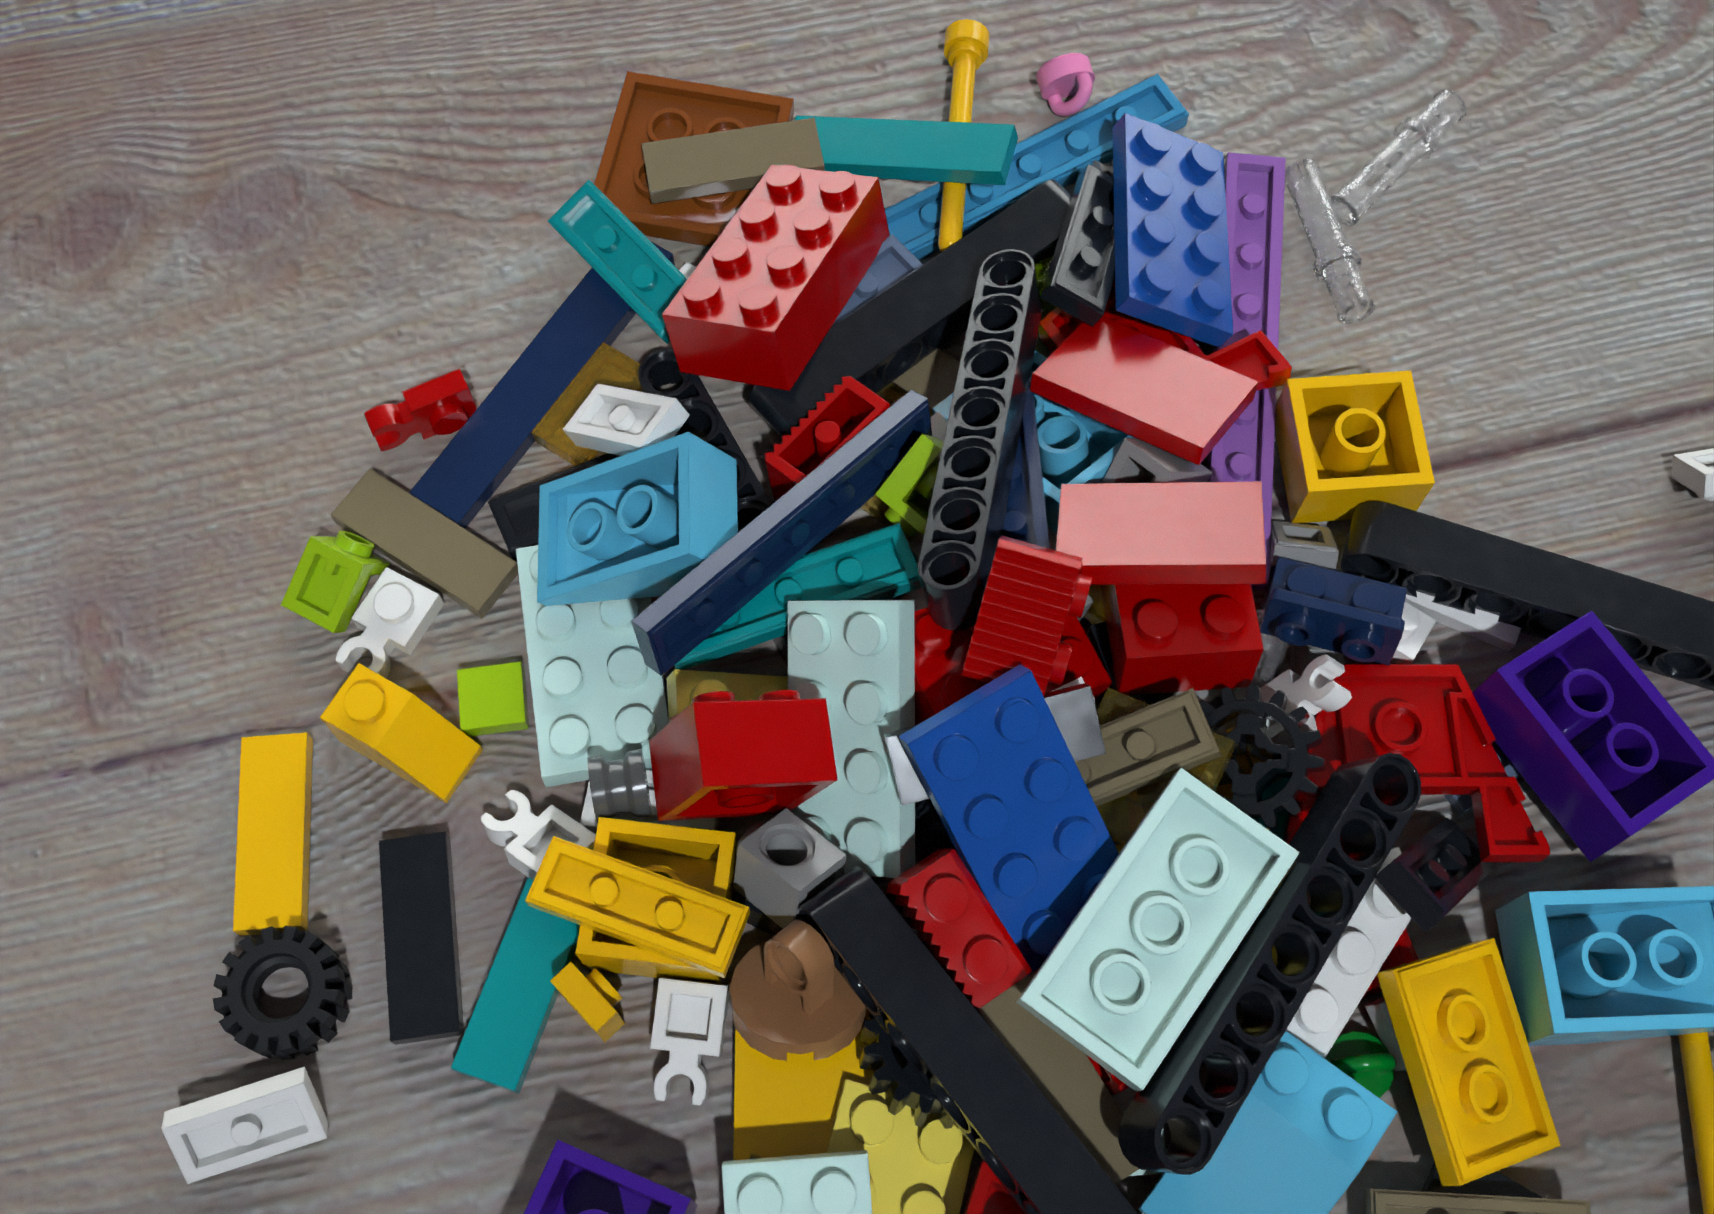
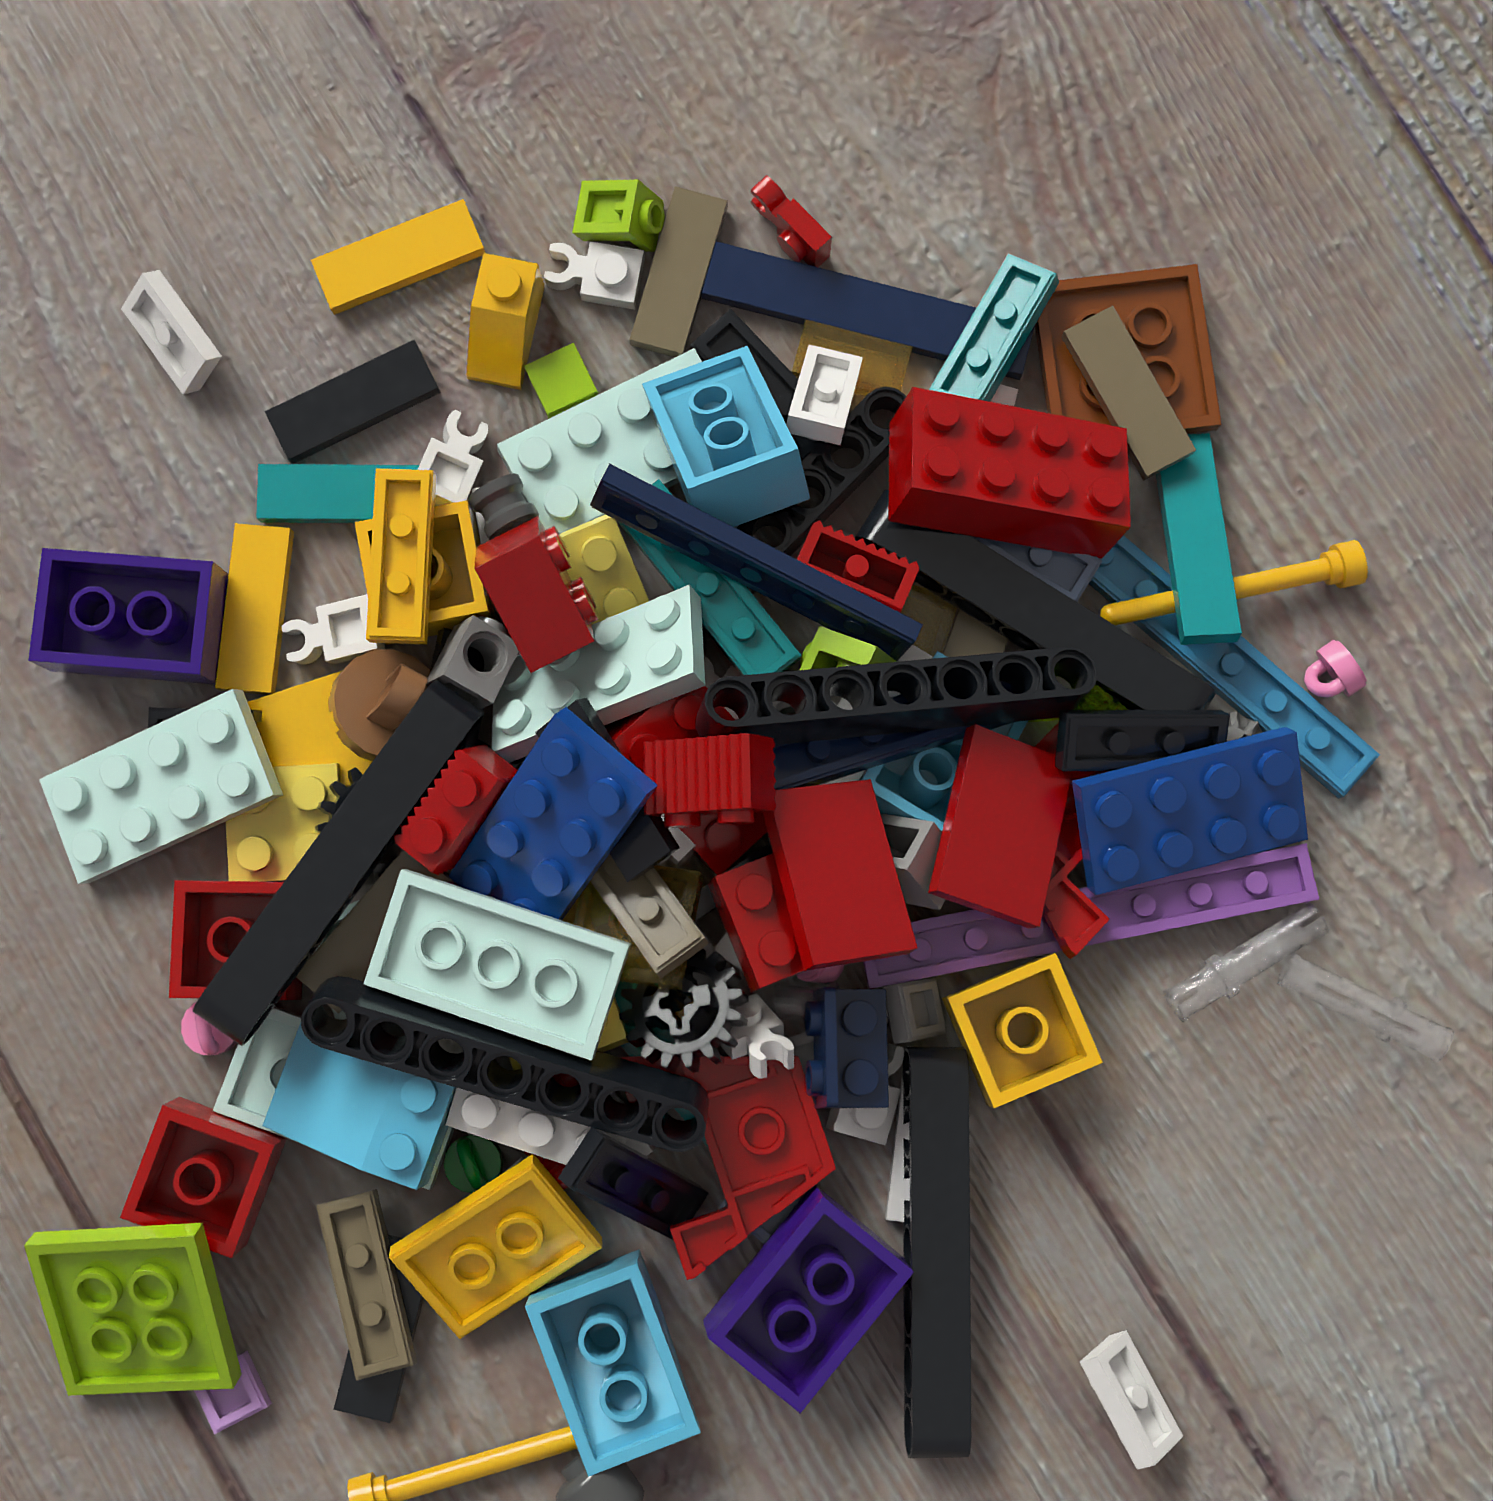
camera: 75 degrees right, 15 degrees up
(251, 968) = (259, 290): black tyre -> none
(591, 998) = (336, 549): yellow plate -> none
(623, 1129) = (254, 609): none -> yellow tile

